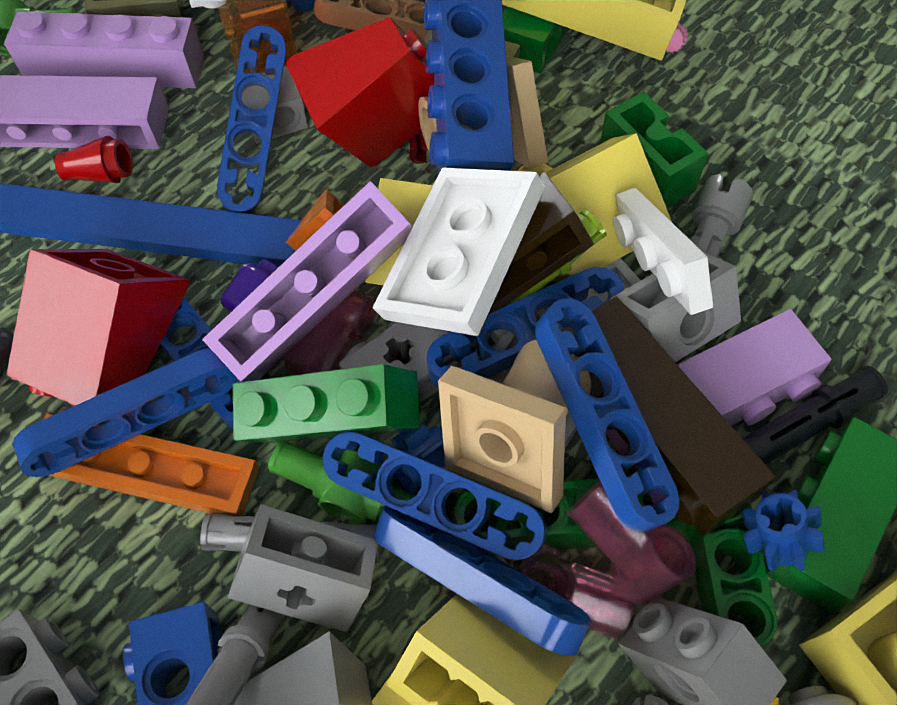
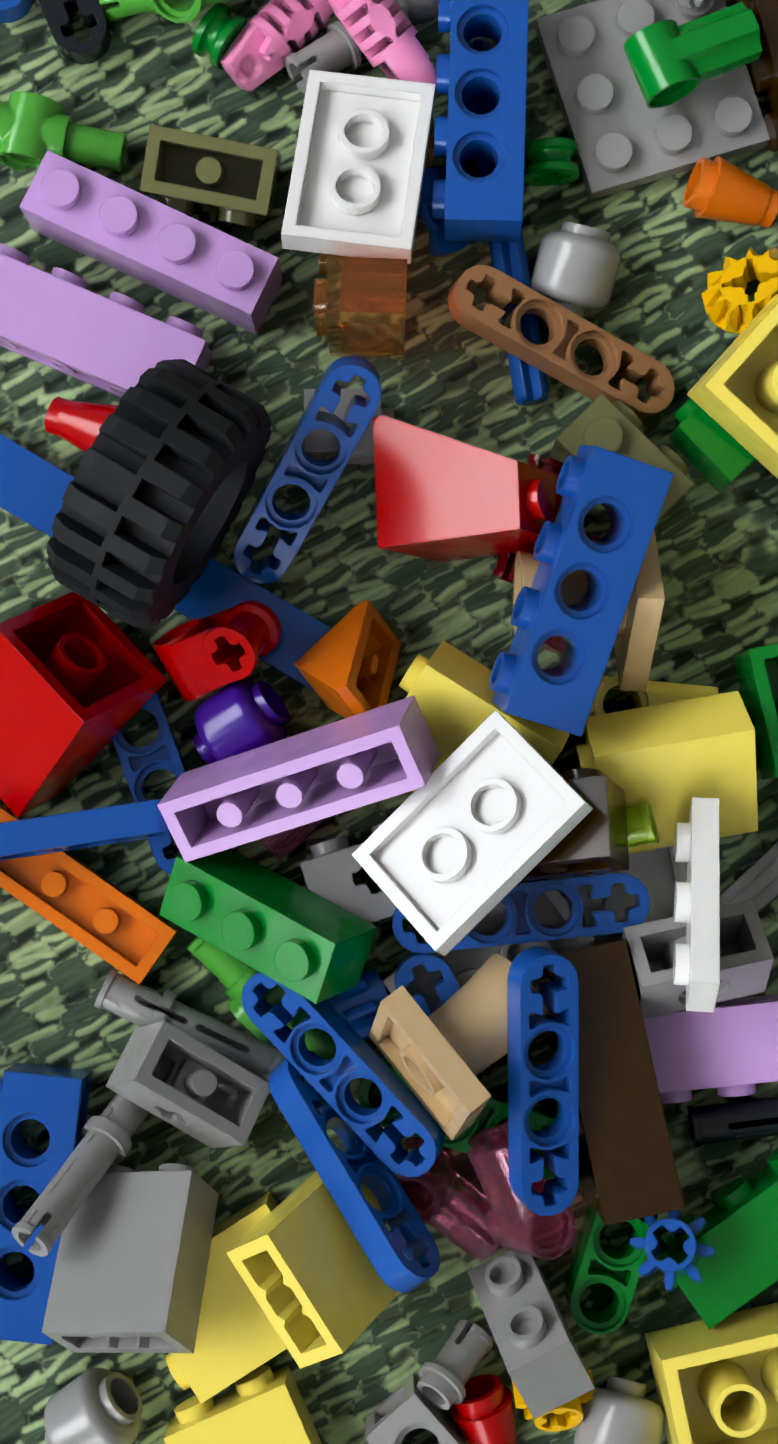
camera: 20 degrees right, 25 degrees up
(135, 129) = (157, 492): none -> black tyre
(216, 252) = (218, 647): none -> red piece

